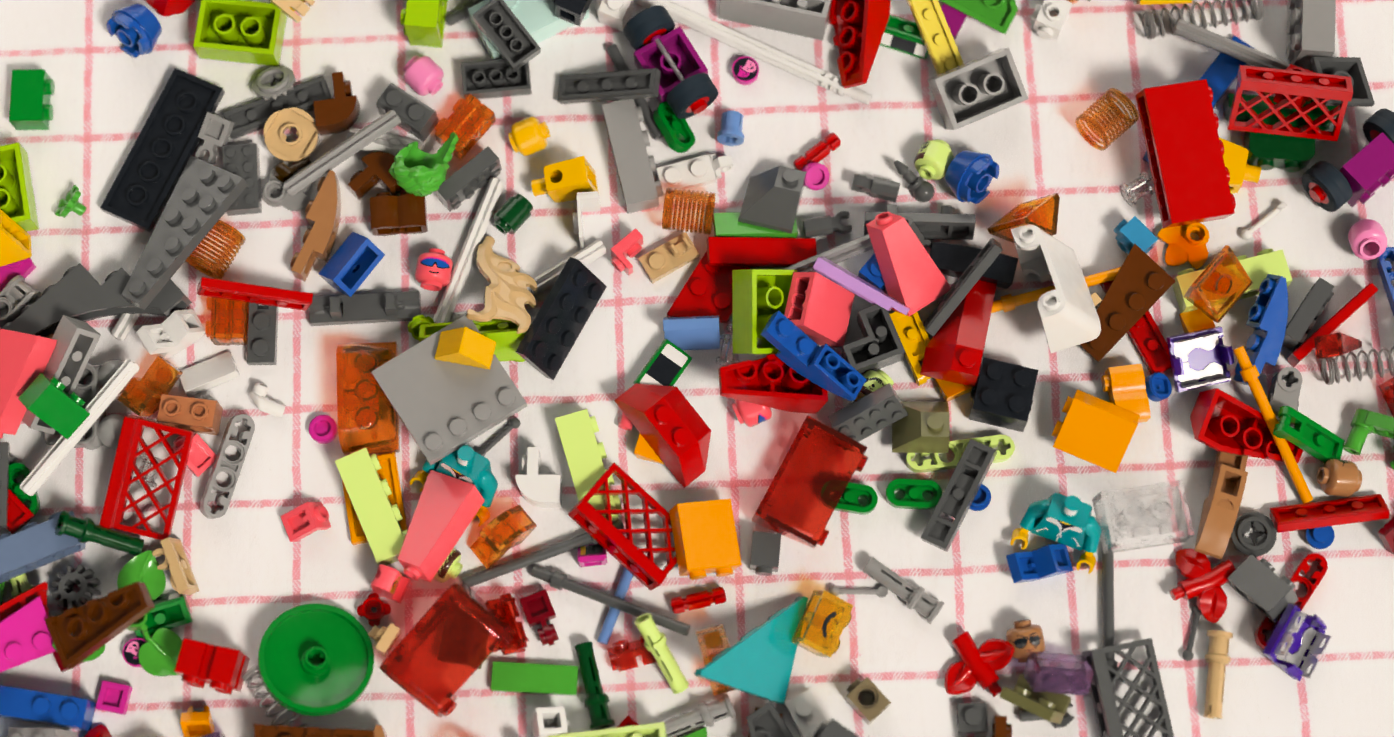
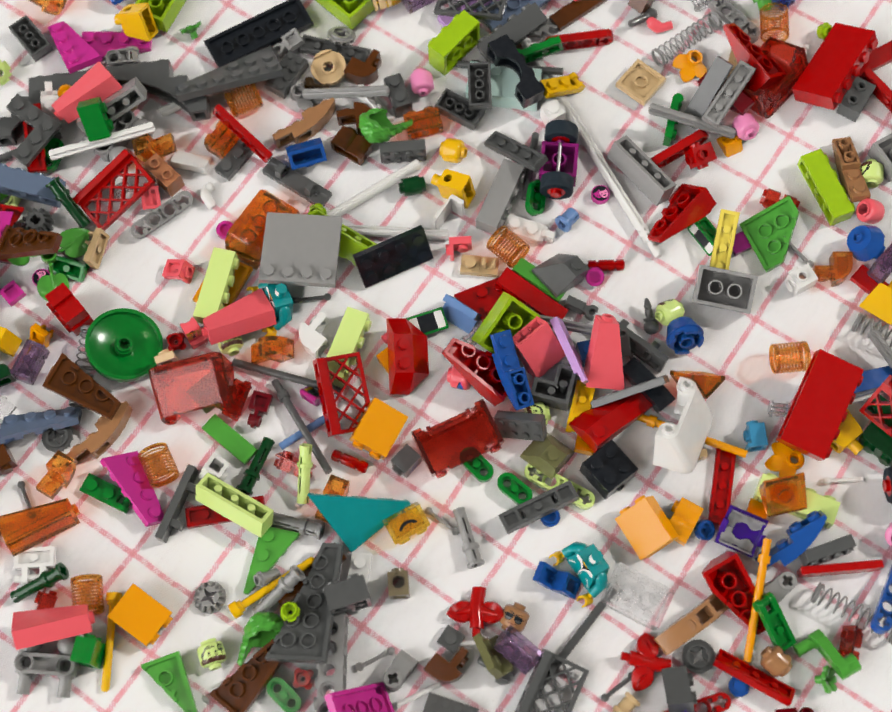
camera: 40 degrees right, 5 degrees down
(173, 335) = (187, 129): white brick -> none
(433, 270) = (347, 186): coral head -> none
(465, 348) = (325, 233): yellow slope -> none
(507, 289) = (375, 221): tan piece -> none
(876, 187) = (625, 306): dark grey bar -> none
(1130, 296) = (725, 466): reddish brown wing -> none
(1335, 345) = (830, 579): clear red slope -> none

